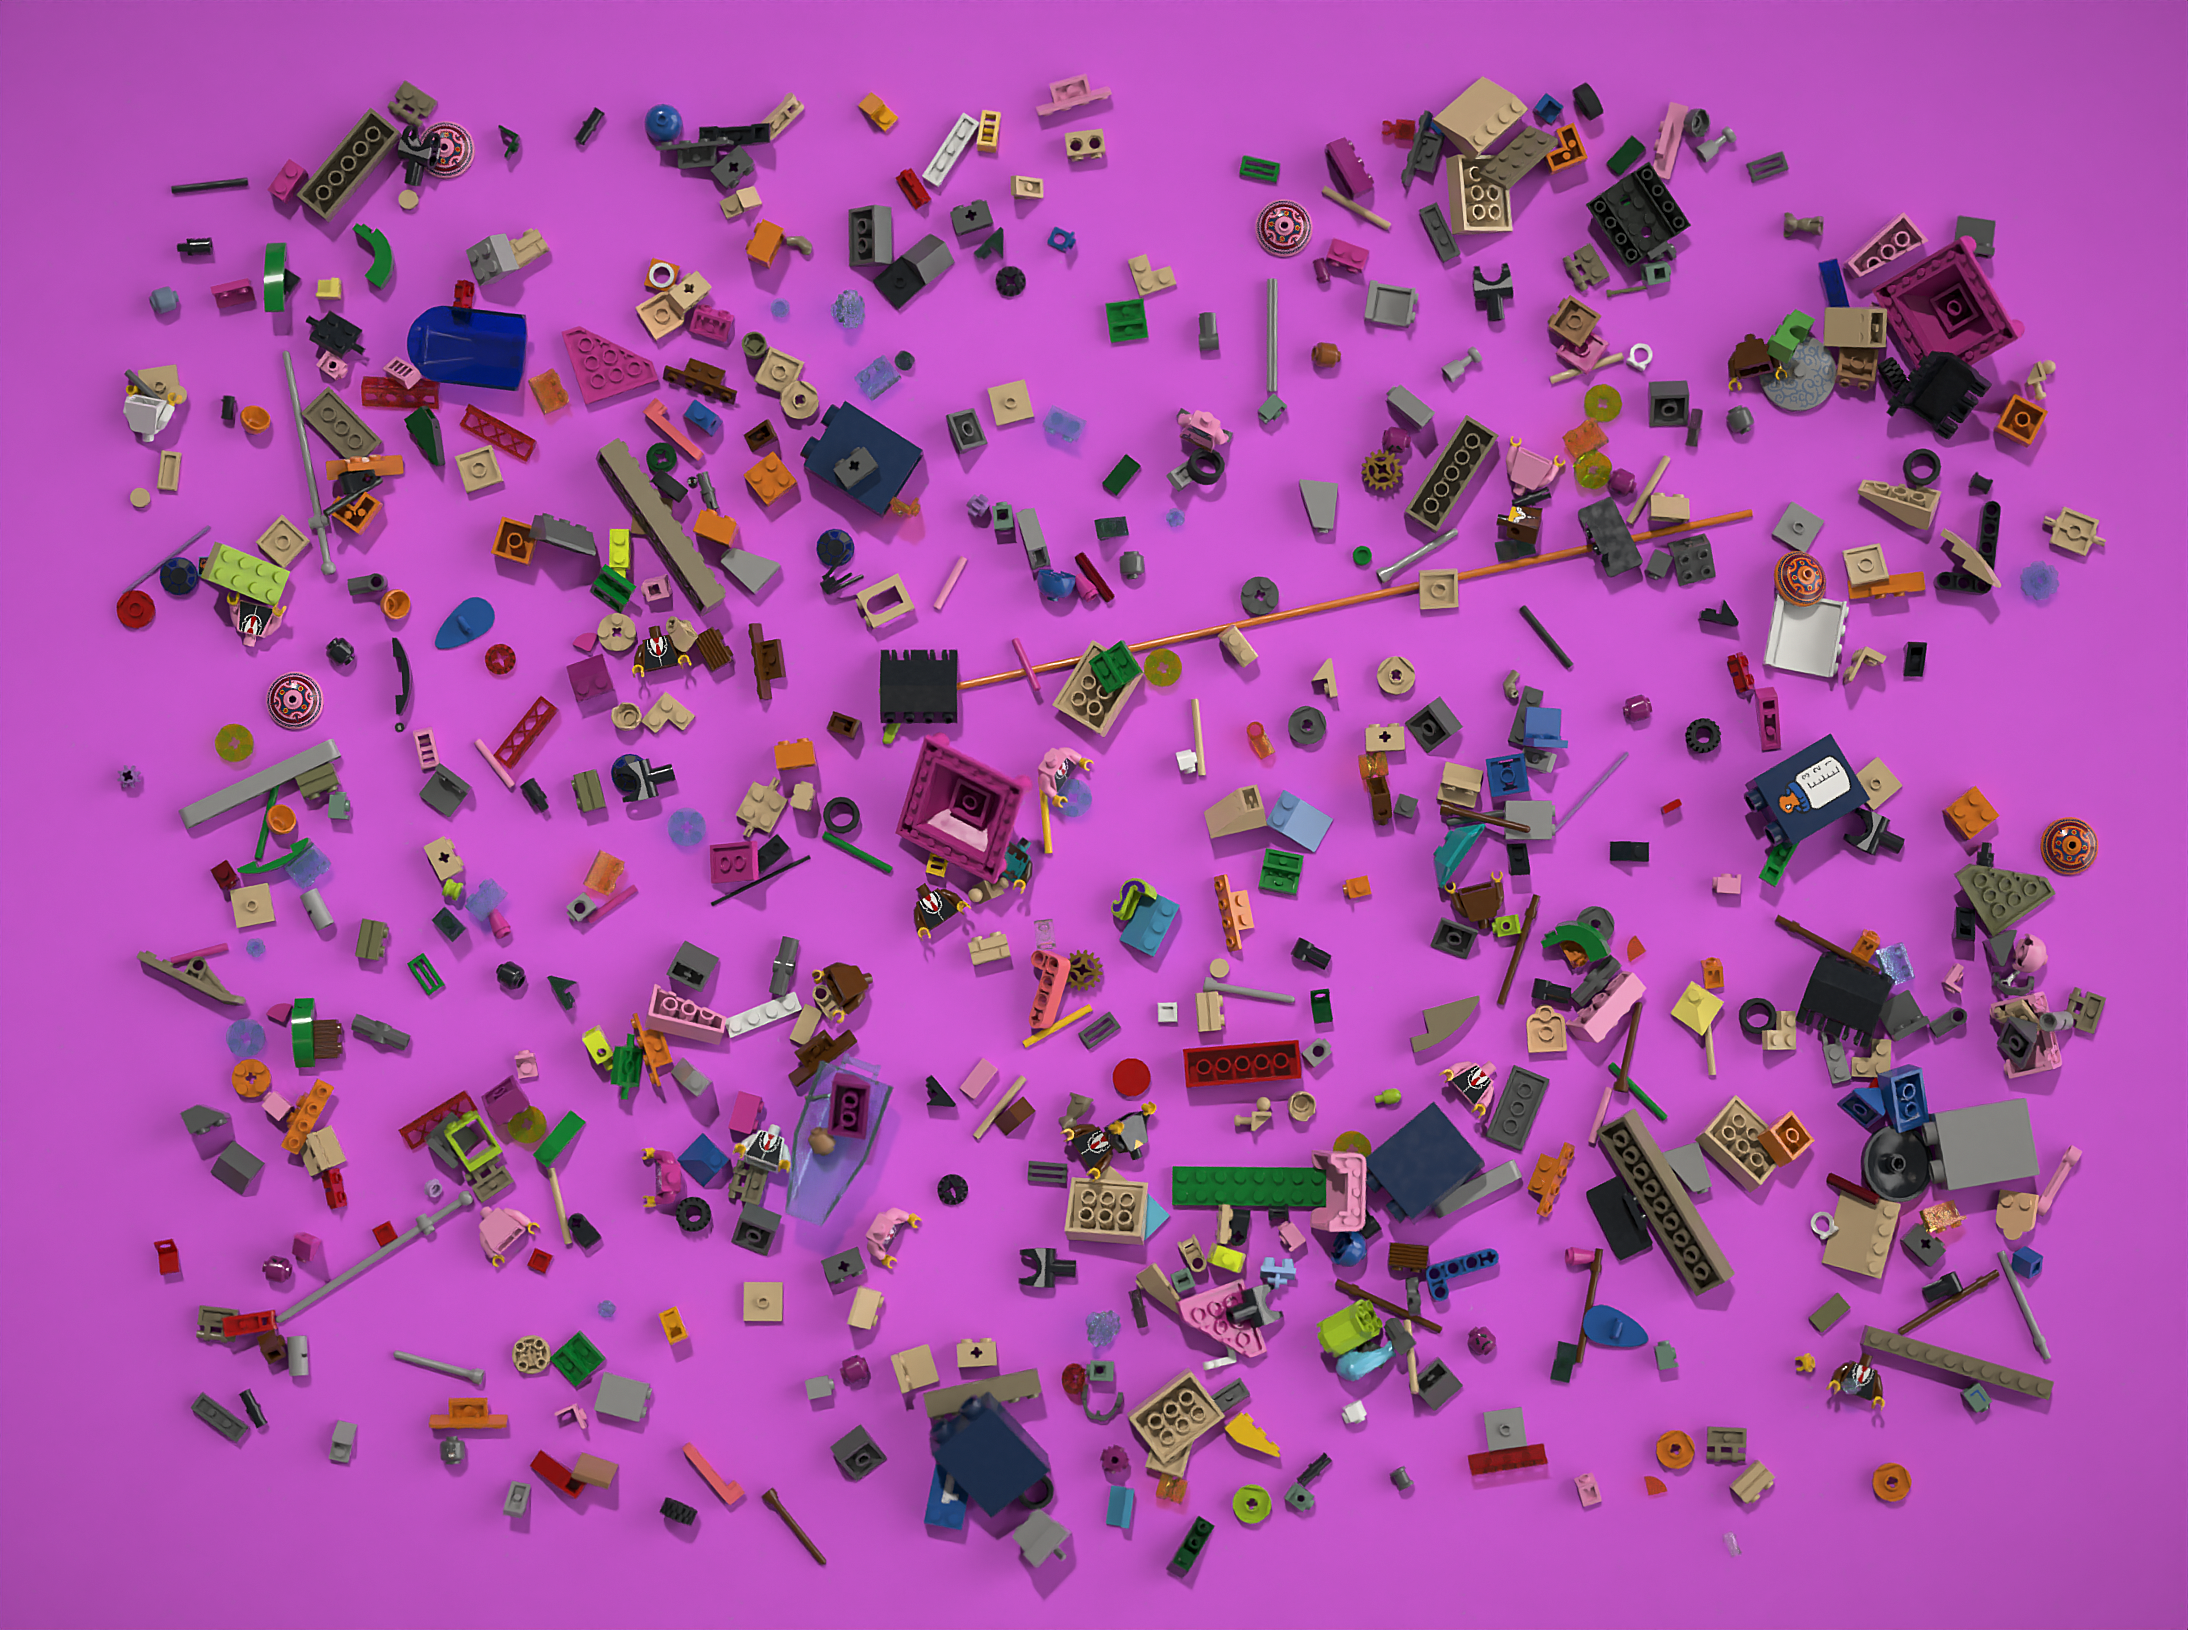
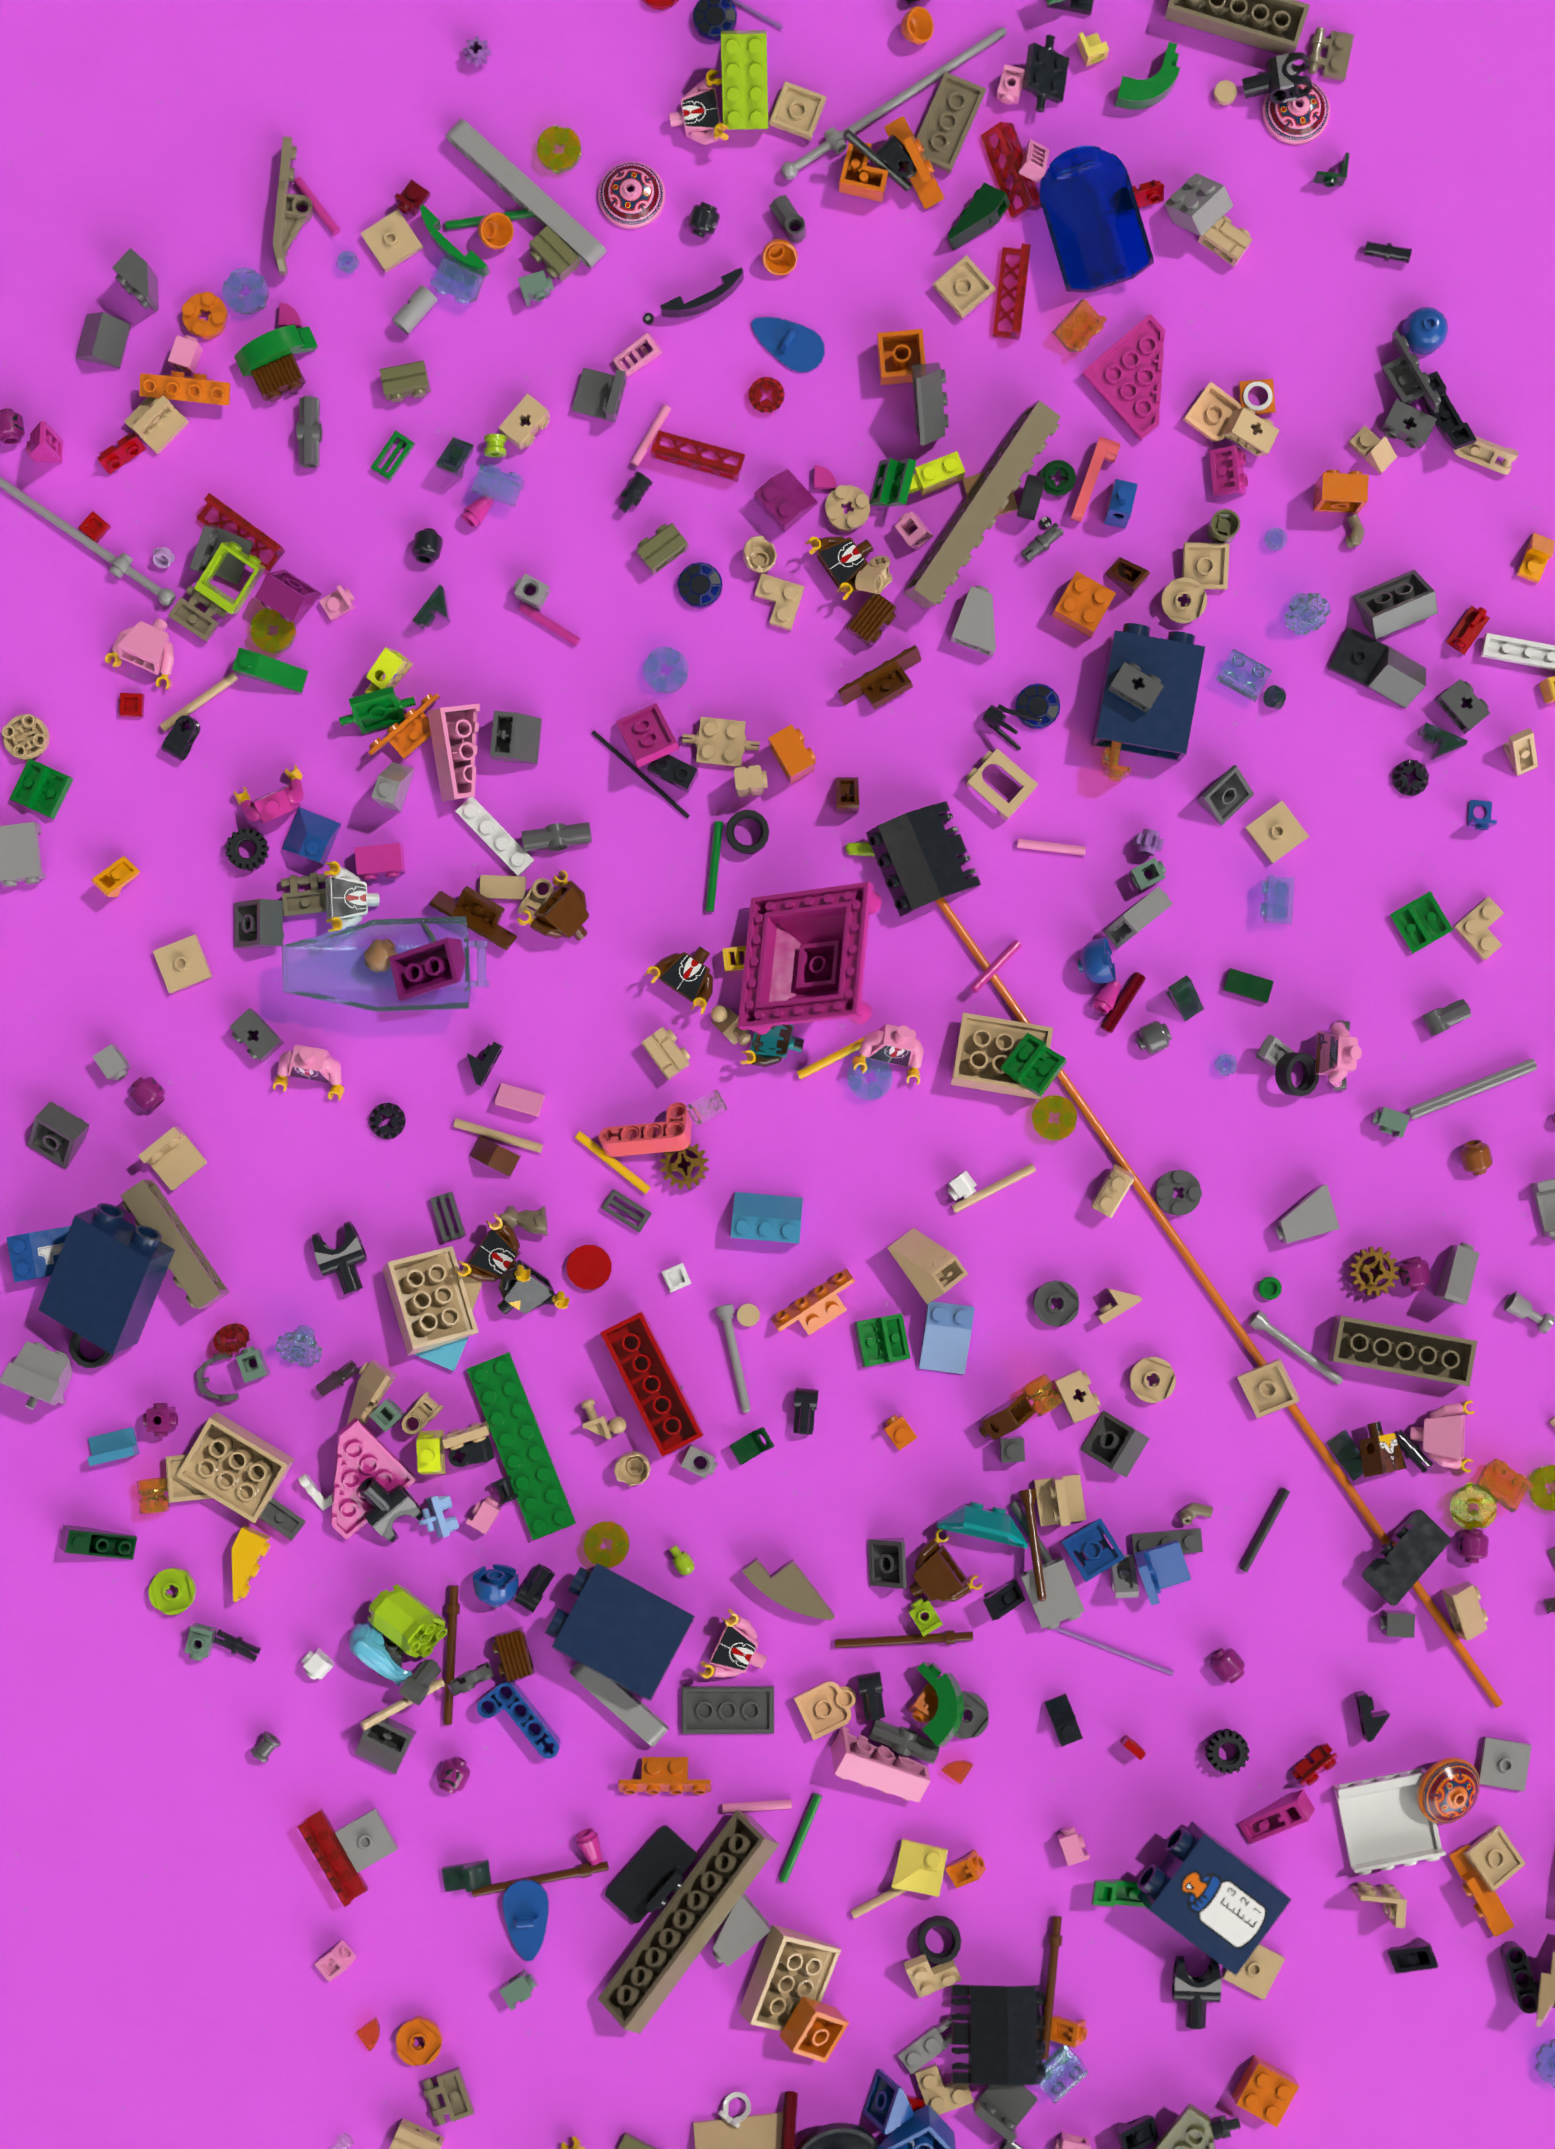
camera: 80 degrees right, 0 degrees up
(604, 873) = (579, 601): bracket -> none
(606, 1309) = (106, 797): clear light blue plate -> none
(646, 778) = (699, 603): black connector -> none
(701, 378) = (1162, 486): reddish brown bracket -> none
(716, 528) = (1004, 566): orange brick -> none
(865, 1307) = (217, 1077): tan slope -> none
(986, 1358) = (215, 1232): tan brick -> none
(1129, 897) = (786, 1184): lime animal -> none
(1208, 1011) = (695, 1323): tan brick -> none
(1261, 741) = (1016, 1259): clear orange piece -> none
(1343, 1191) = (554, 1556): bright pink windscreen -> none
(1621, 1083) = (801, 1817): reddish brown piece -> none
(1648, 489) = (1475, 1577): tan bar -> none
(1692, 559) = (1420, 1660): dark grey bracket -> none

